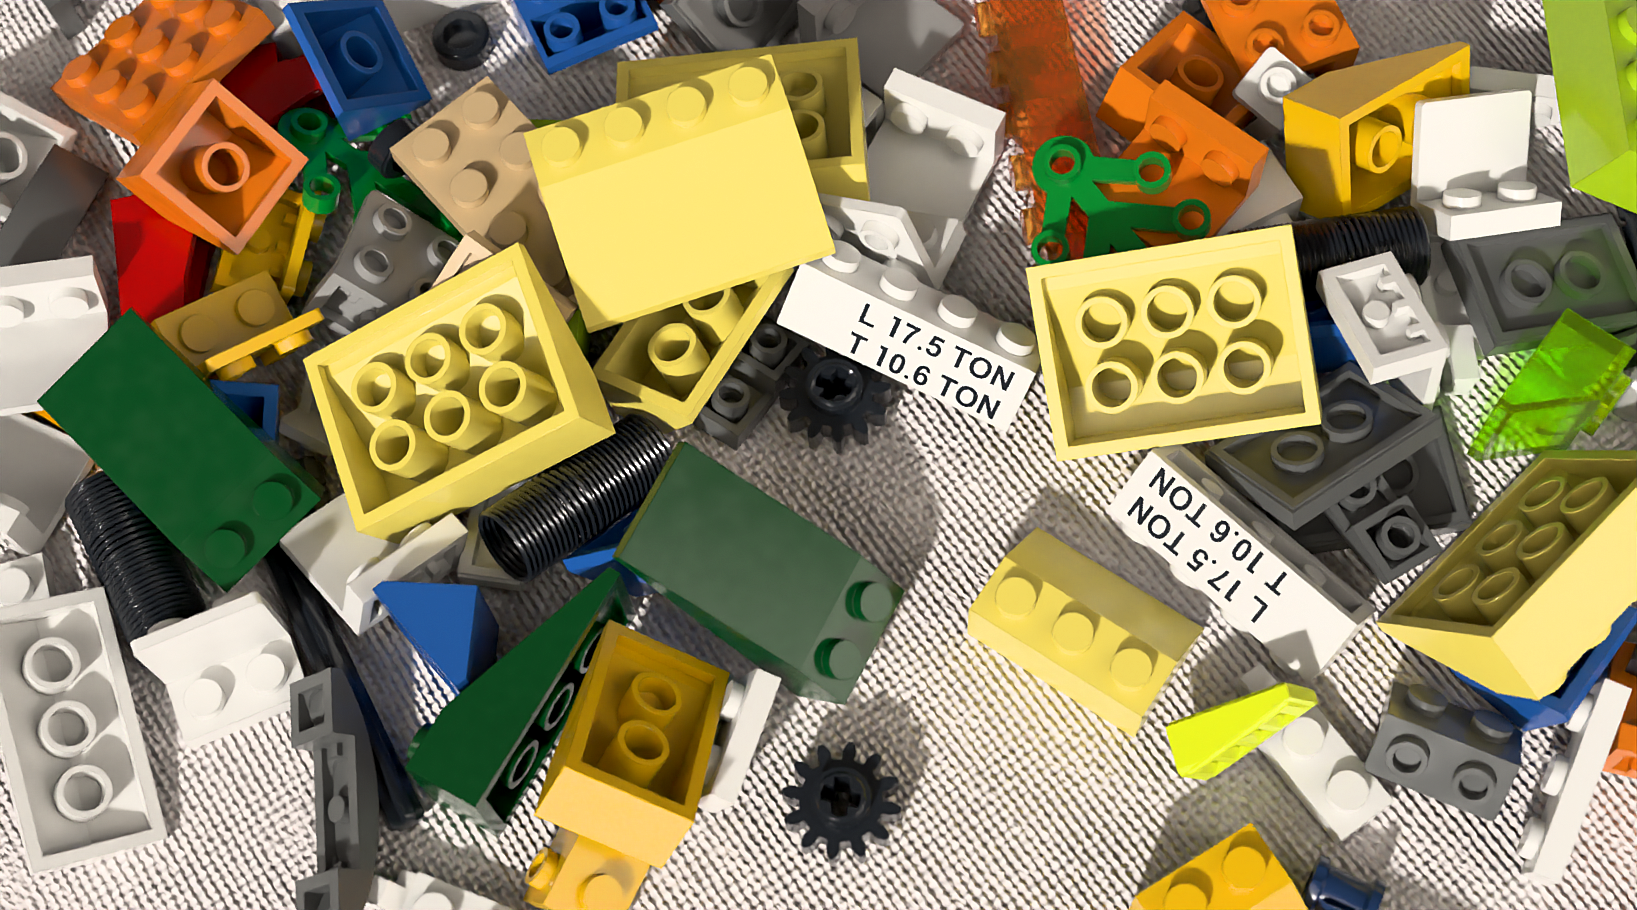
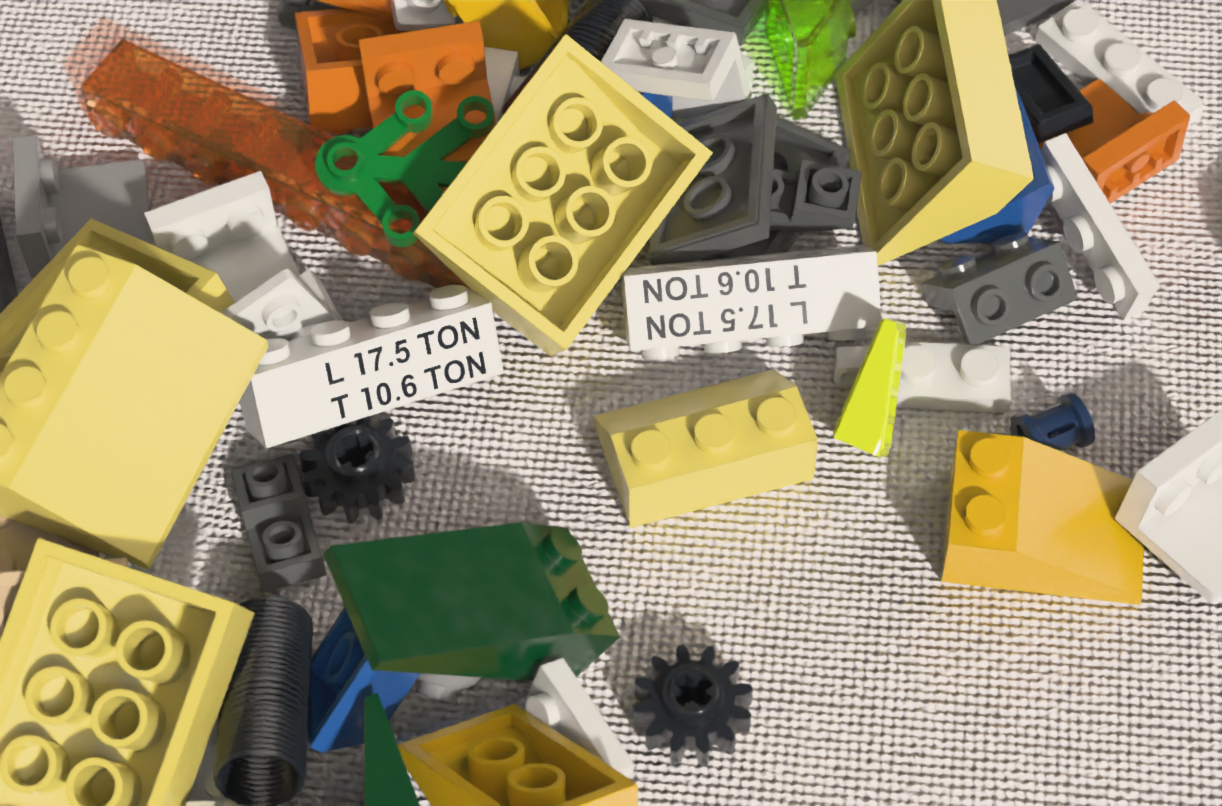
camera: 55 degrees left, 10 degrees down
(678, 355) = (231, 526): light yellow slope -> none

